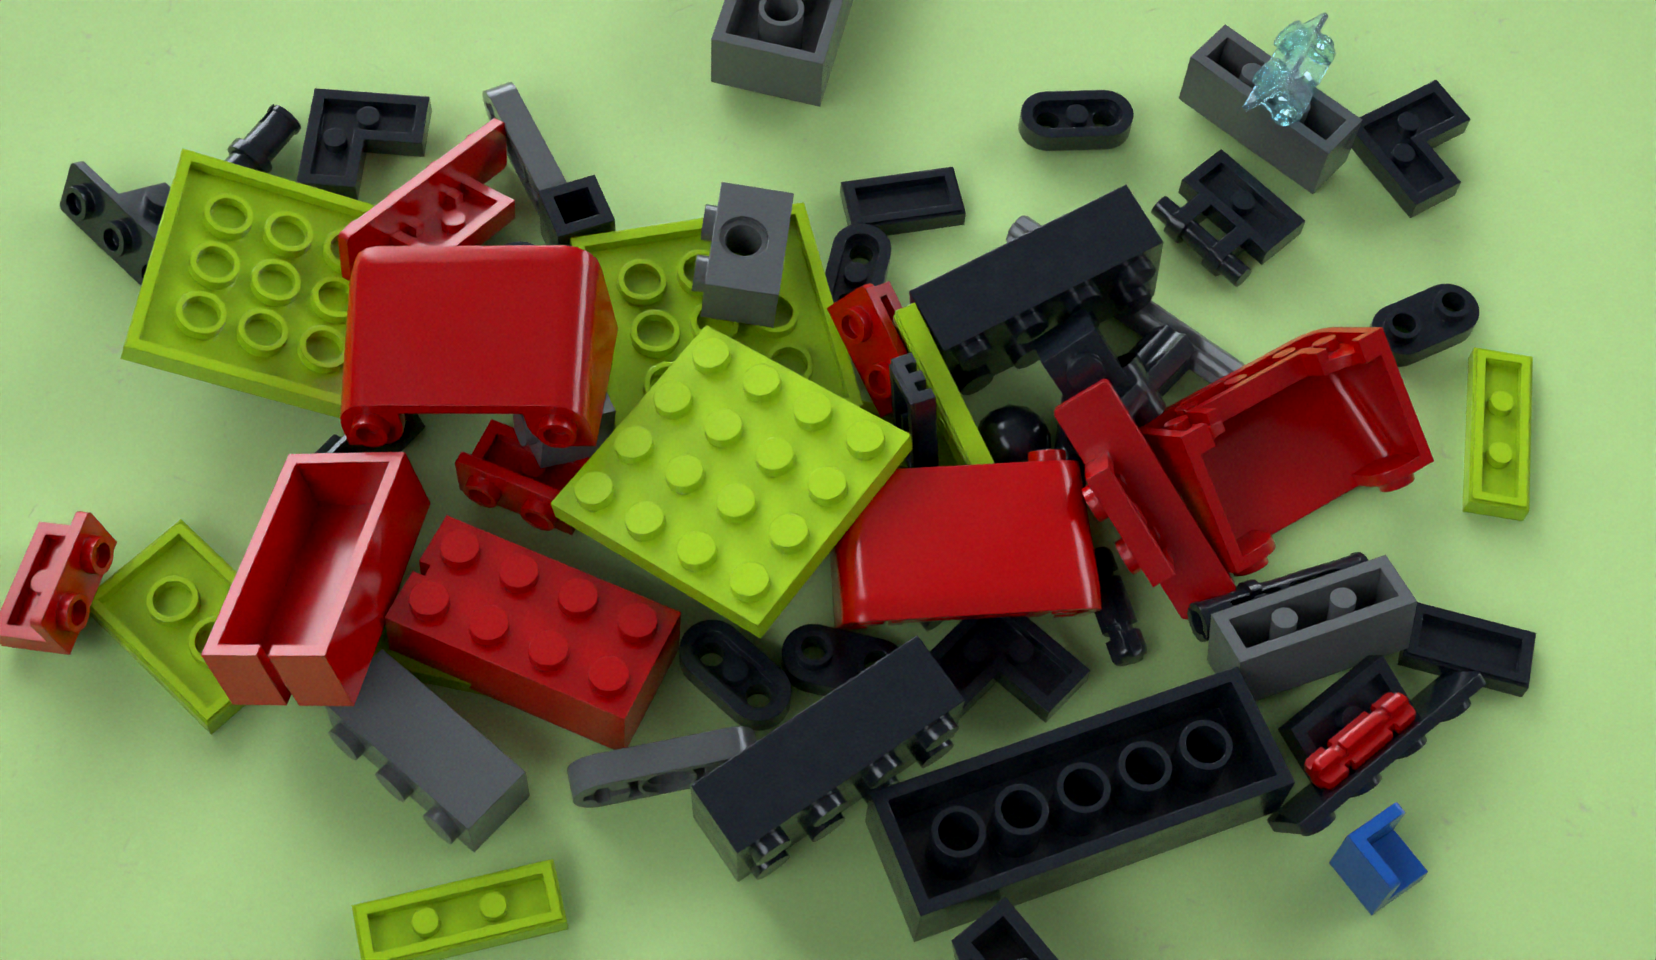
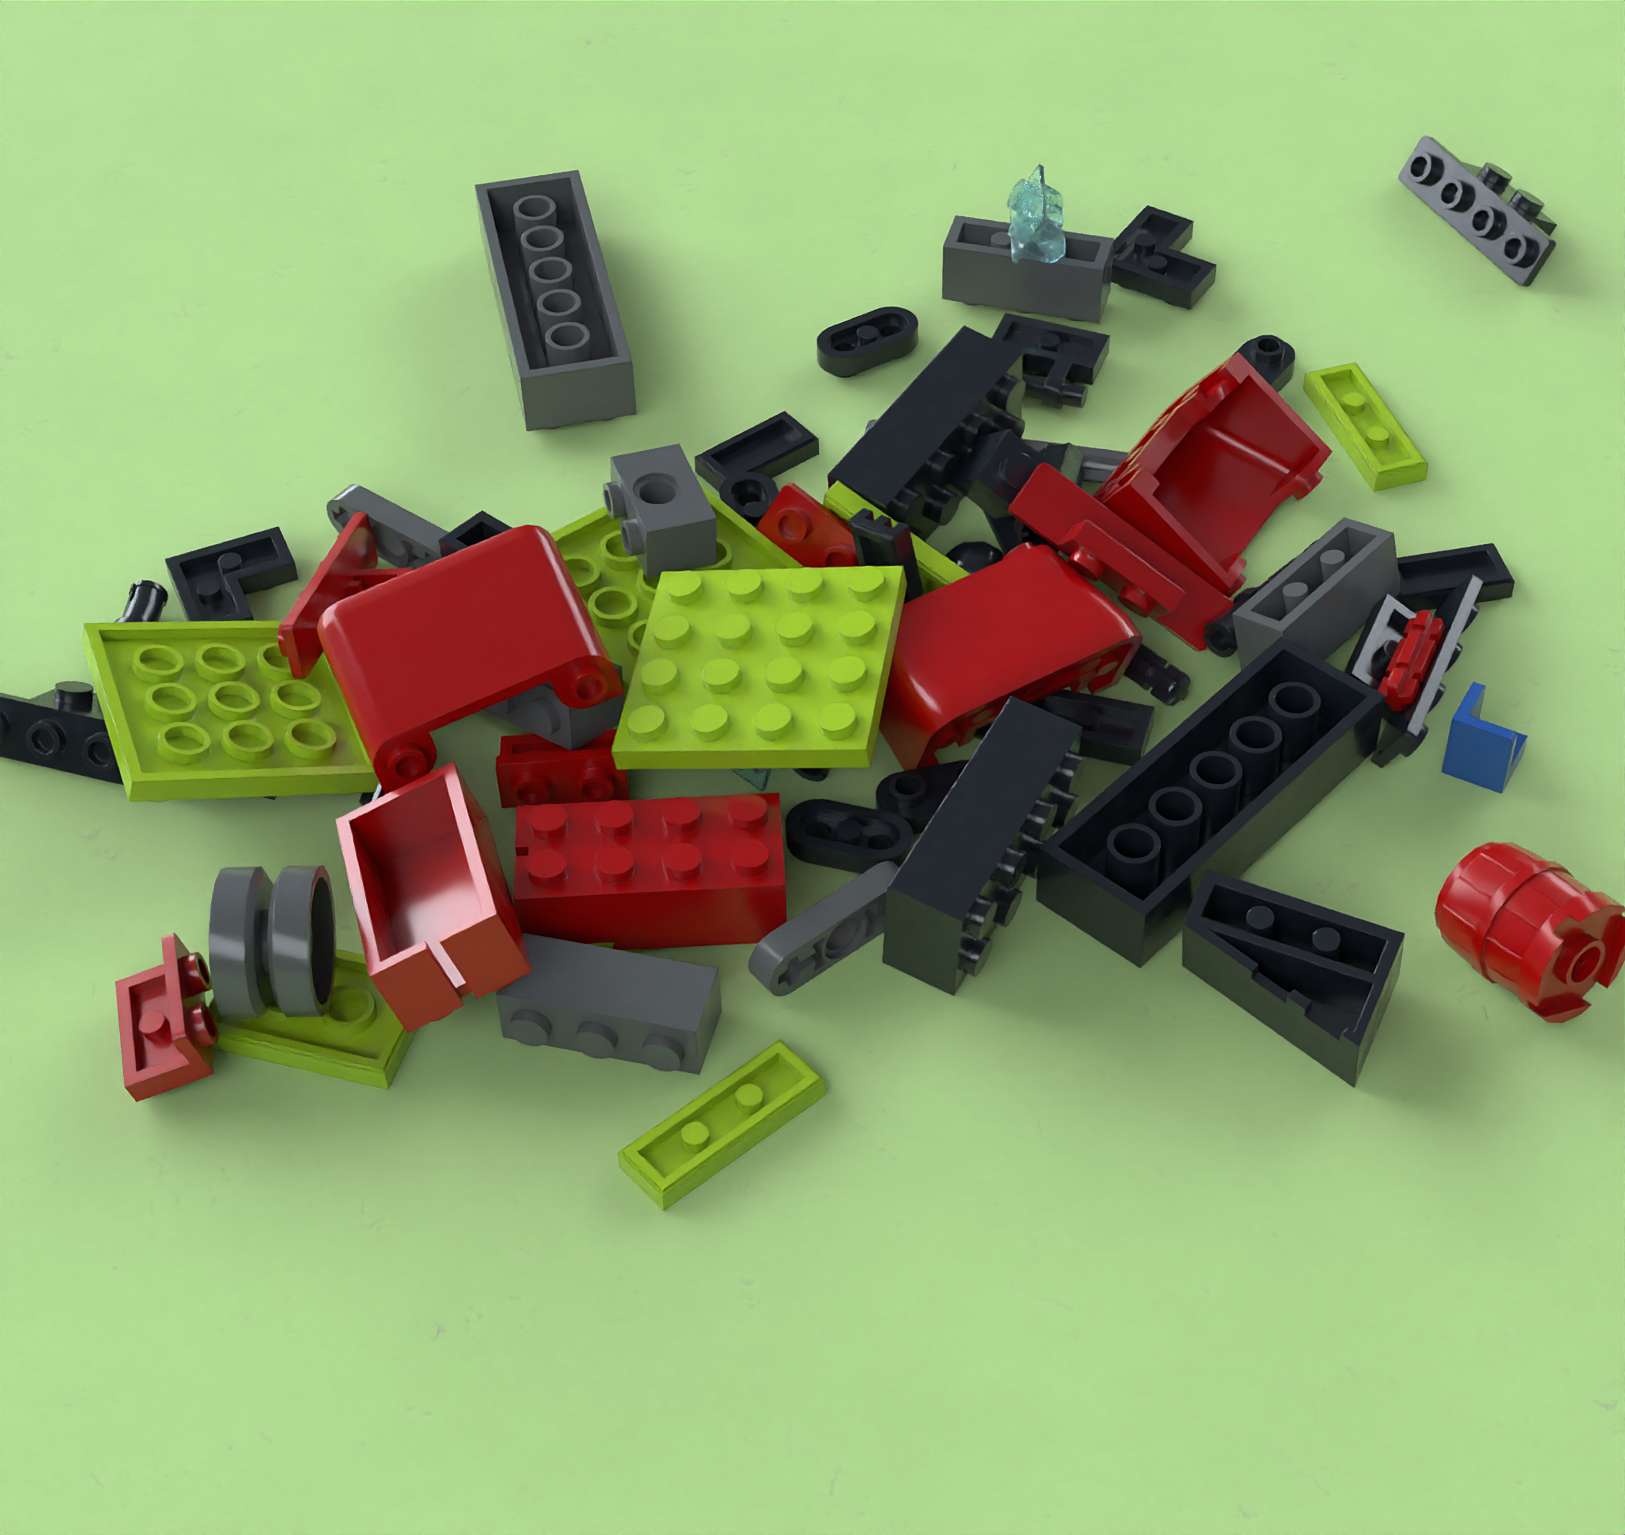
camera: 20 degrees left, 15 degrees down
(158, 564) = (272, 941): none -> dark grey wheel

